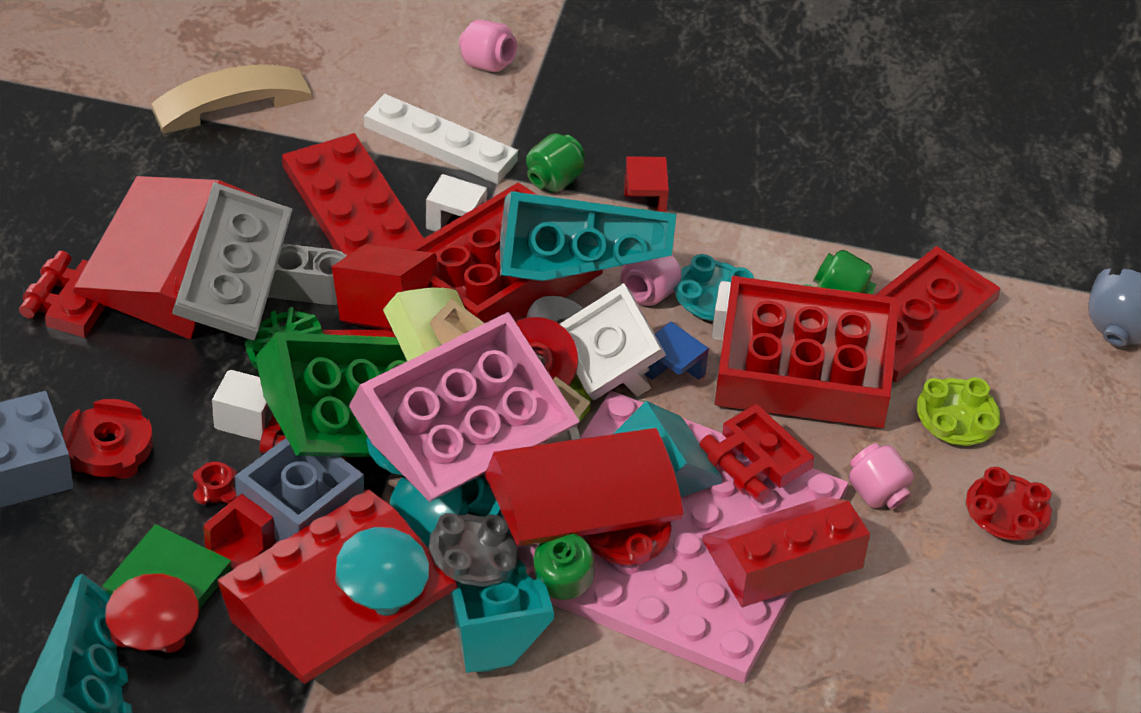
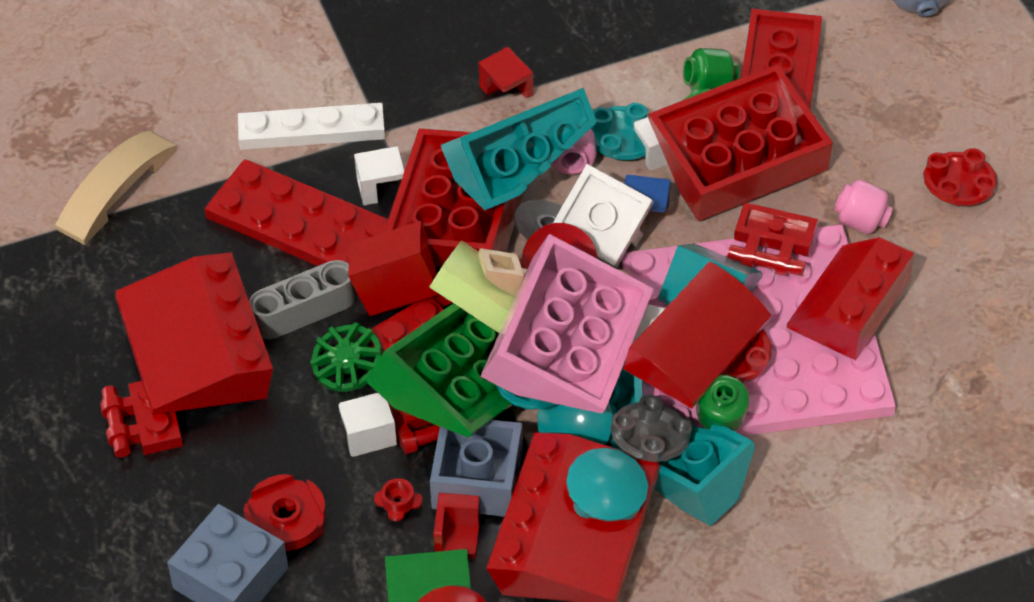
camera: 30 degrees left, 5 degrees up
(233, 261) = (269, 315): light grey tile -> none
(488, 45) = (283, 29): bright pink head -> none
(555, 162) = (423, 96): green head -> none
(958, 410) = (869, 126): lime dish -> none

